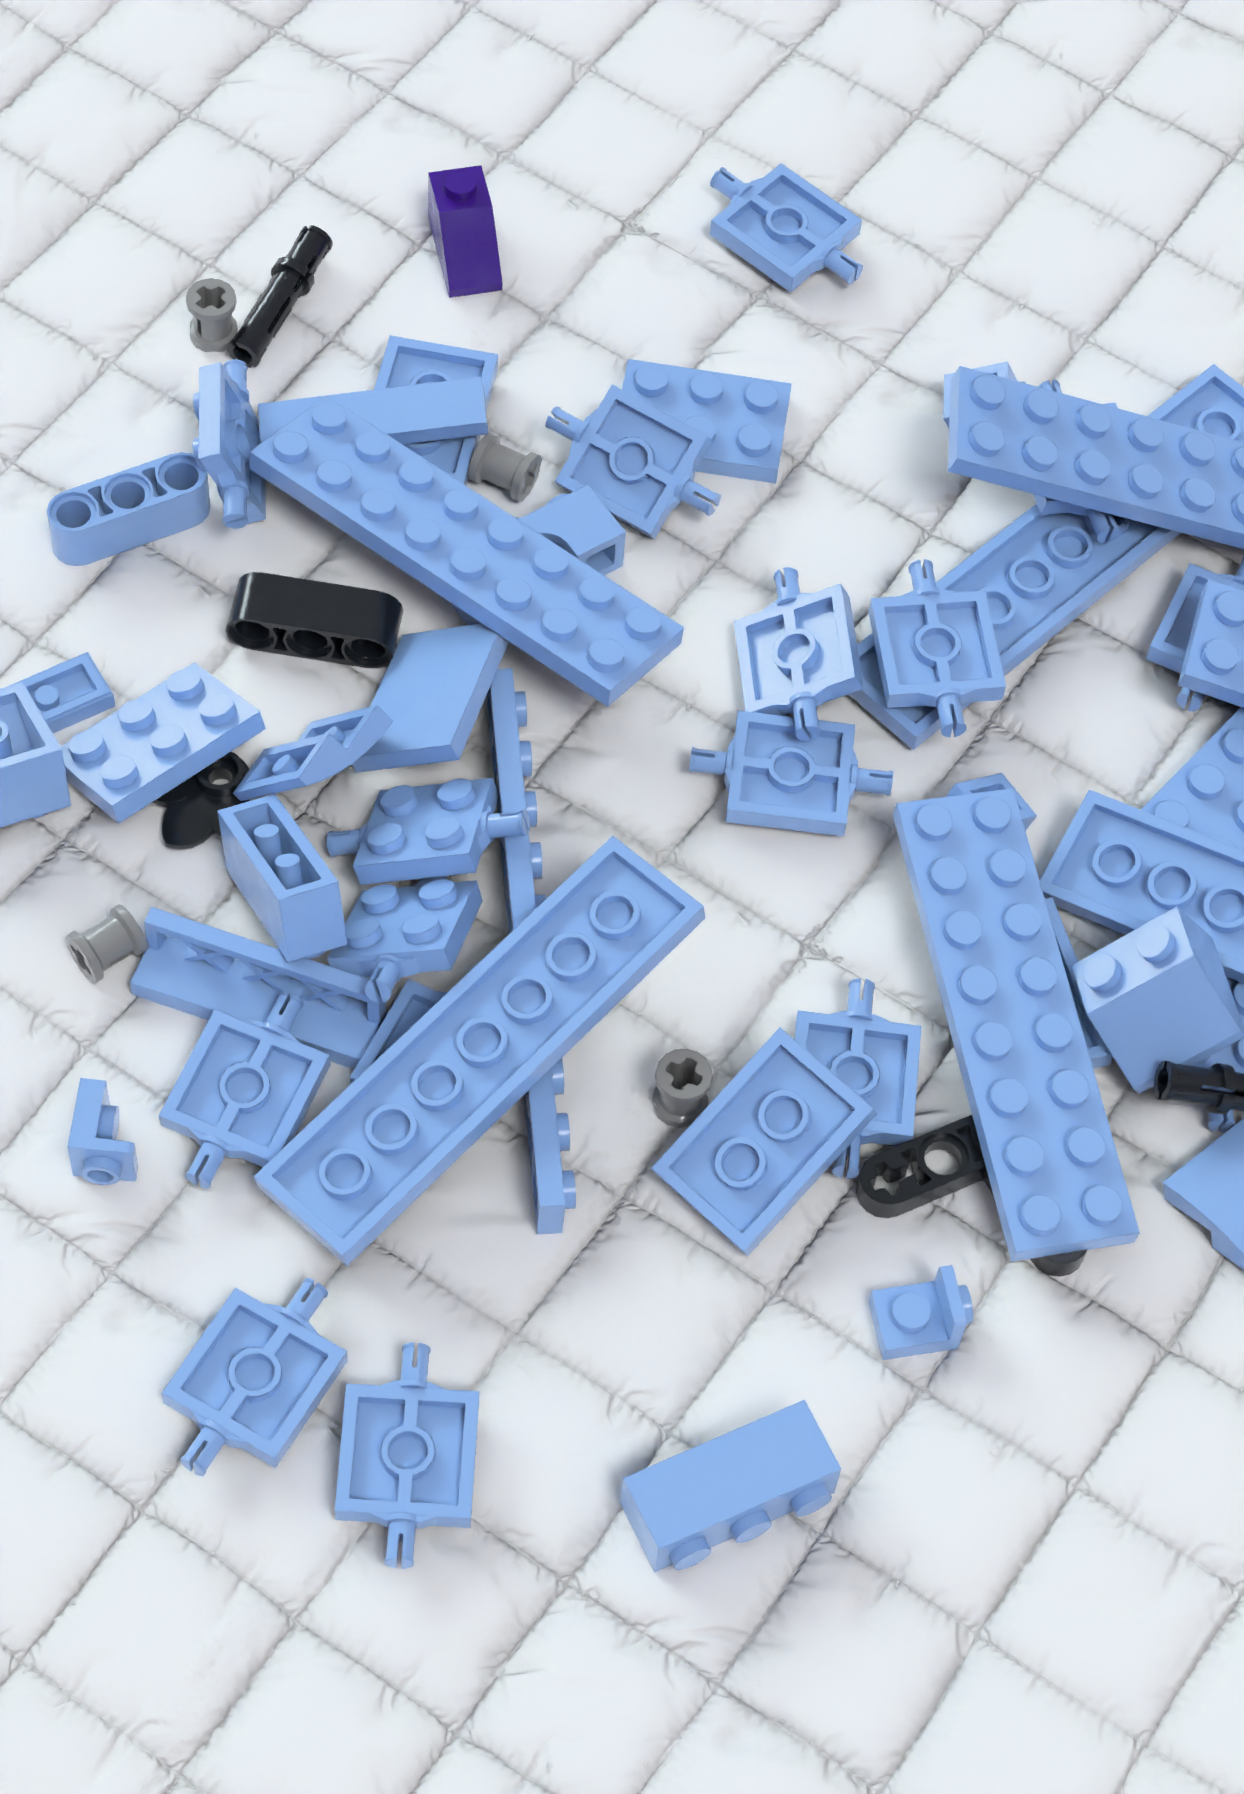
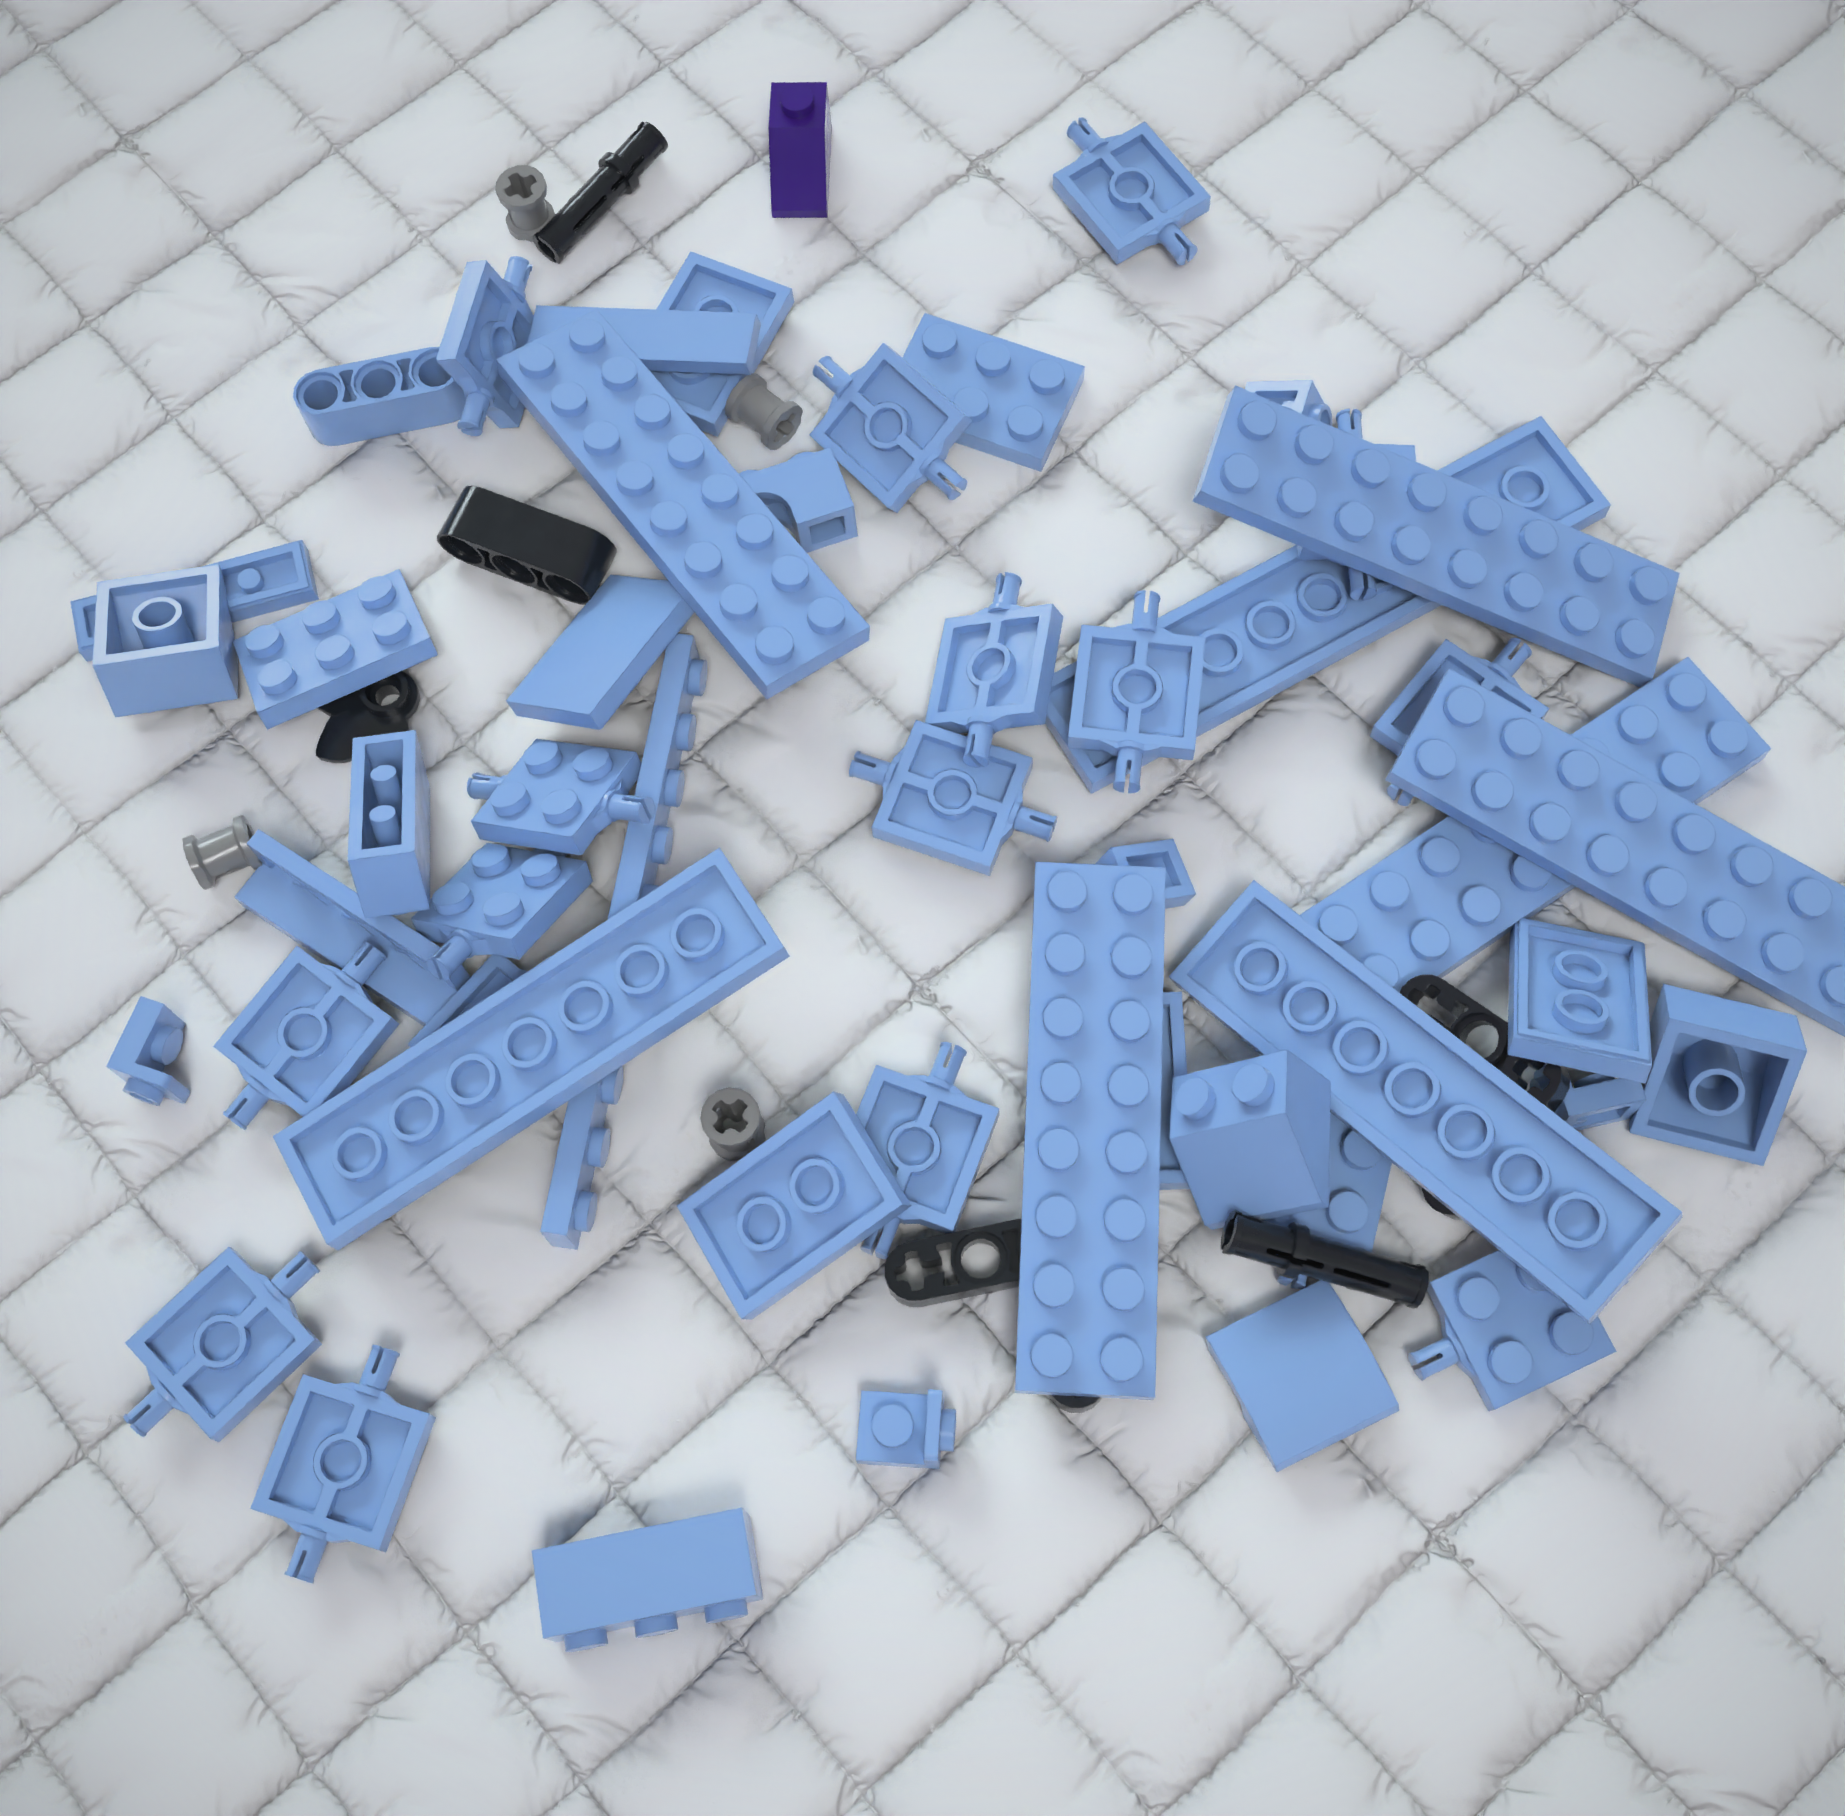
camera: 25 degrees right, 10 degrees up
(318, 754) = (453, 703): light blue slope -> none

